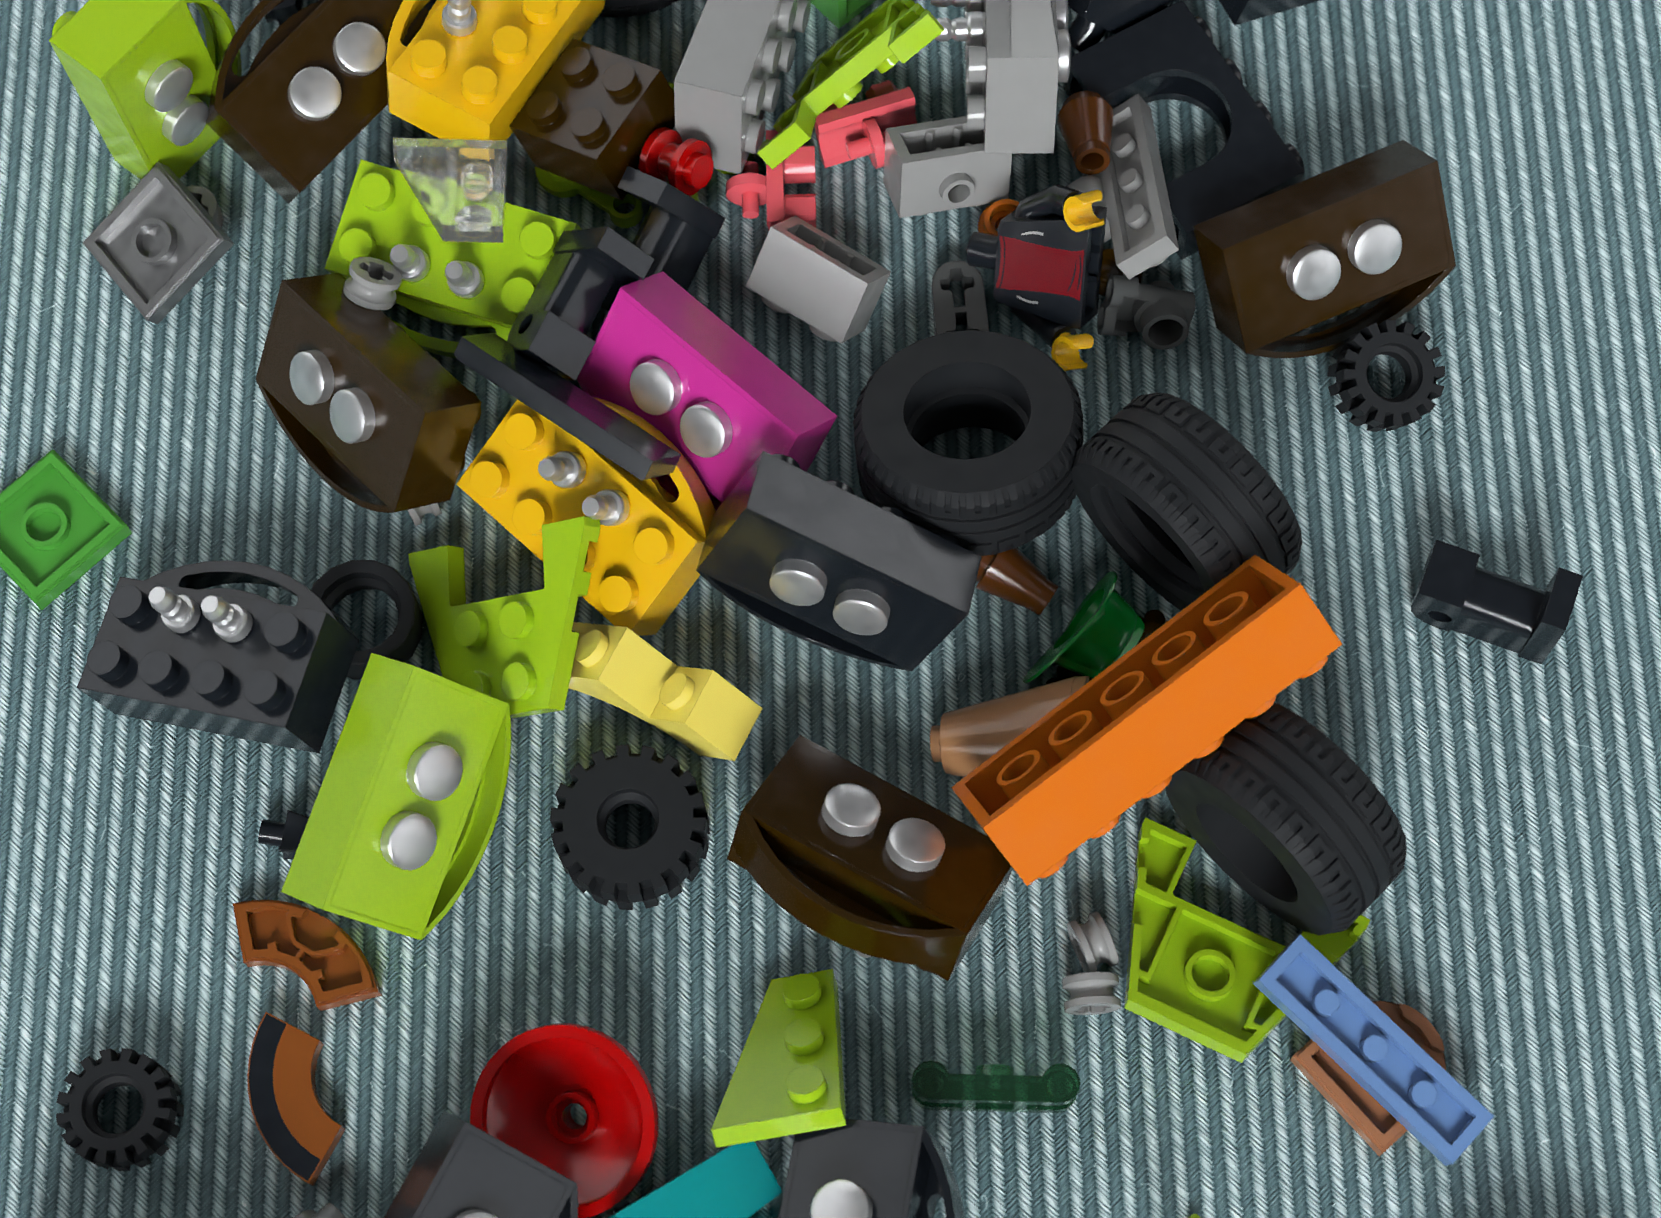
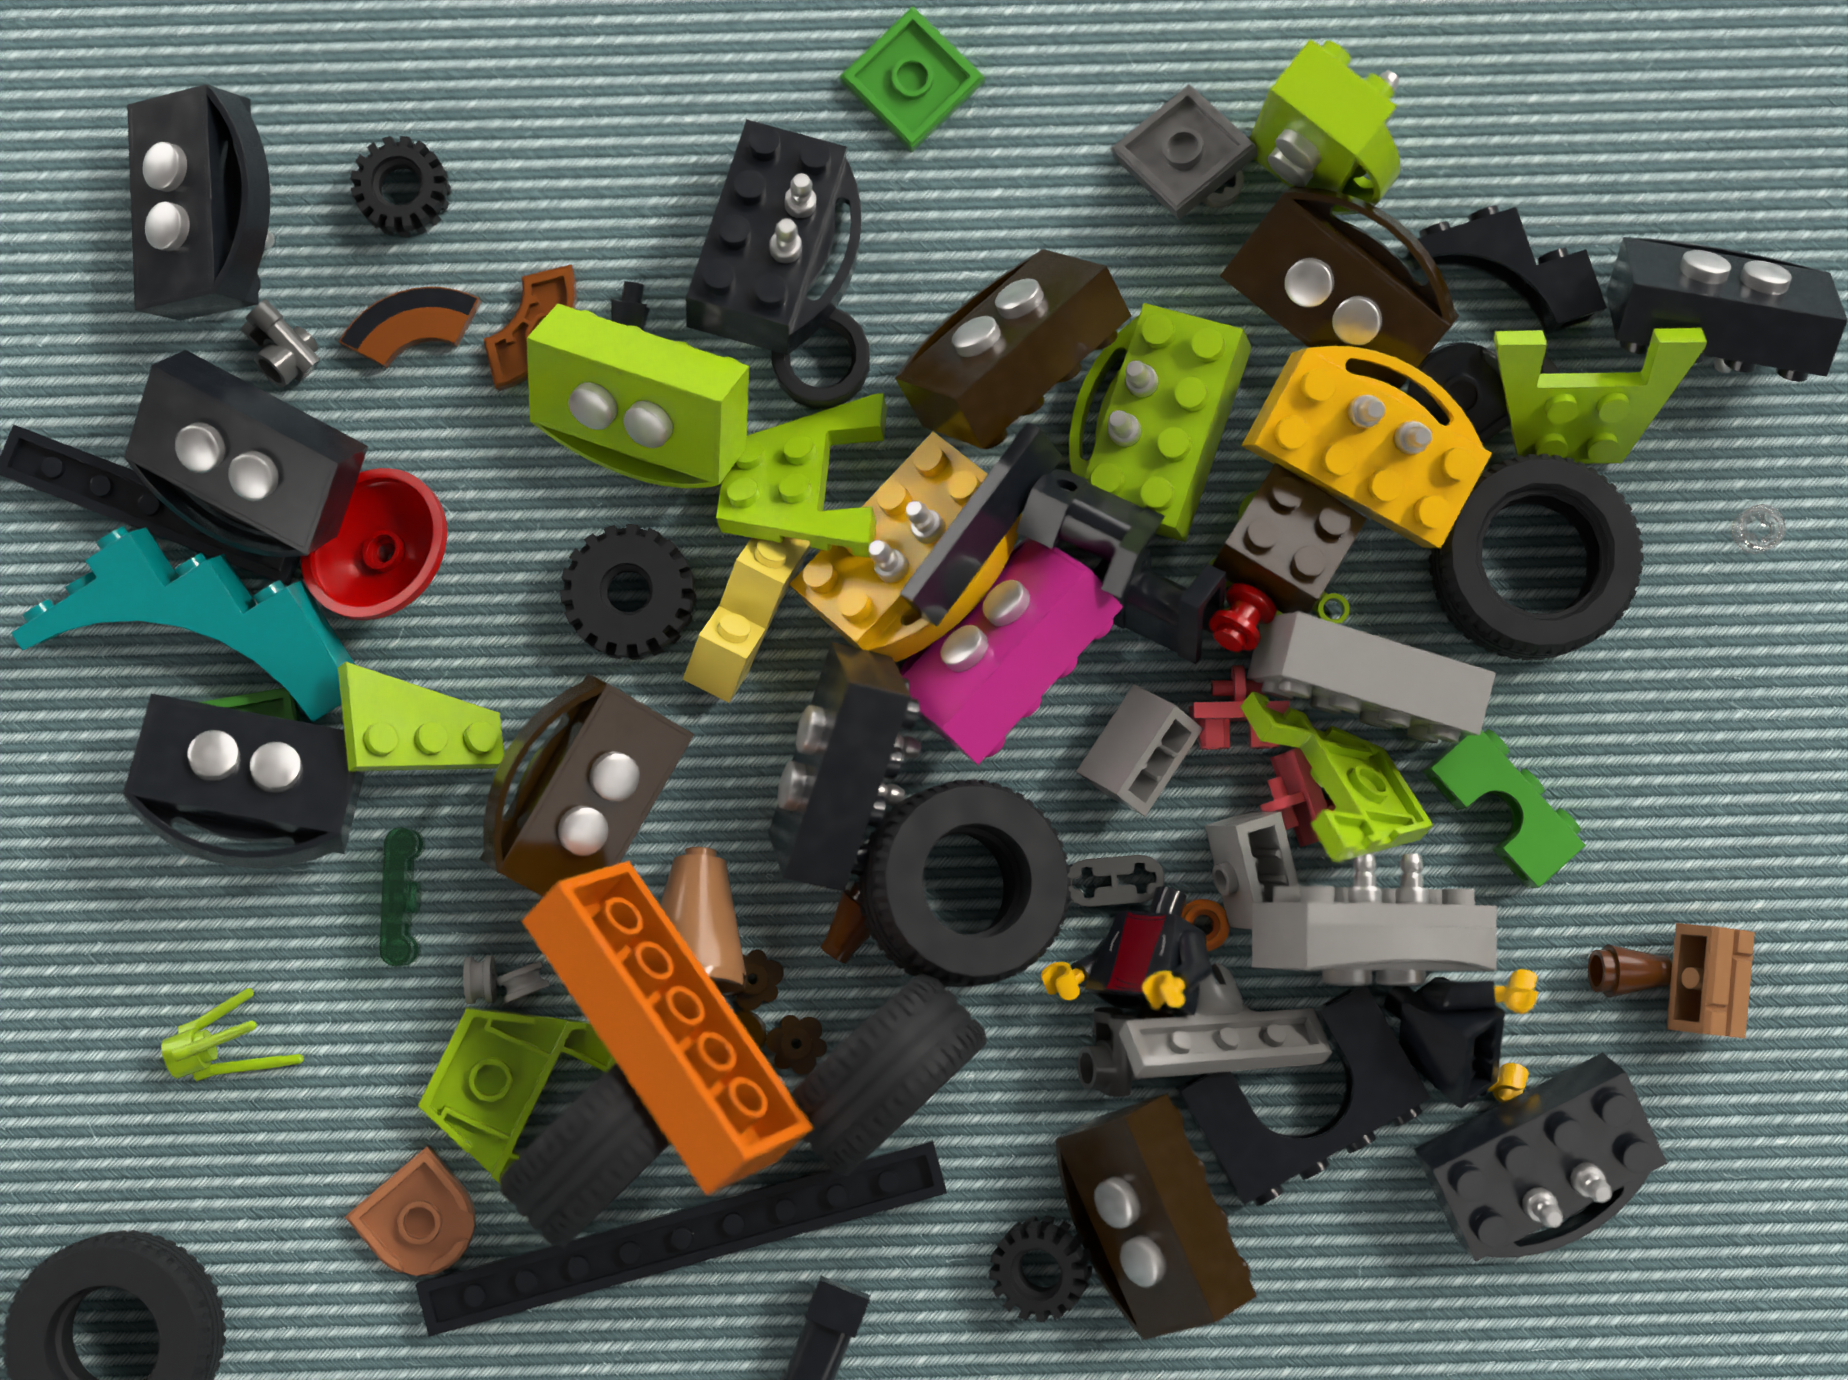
camera: 85 degrees right, 15 degrees up
(372, 283) = (1099, 343): light grey bush -> none
(458, 184) = (1200, 419): clear wing -> none
(1087, 130) = (1285, 1001): reddish brown cone -> none
(1096, 635) = (791, 990): green piece -> none
(1373, 736) = (679, 1238): none -> black plate
(1373, 1050) = (418, 1211): medium blue plate -> none

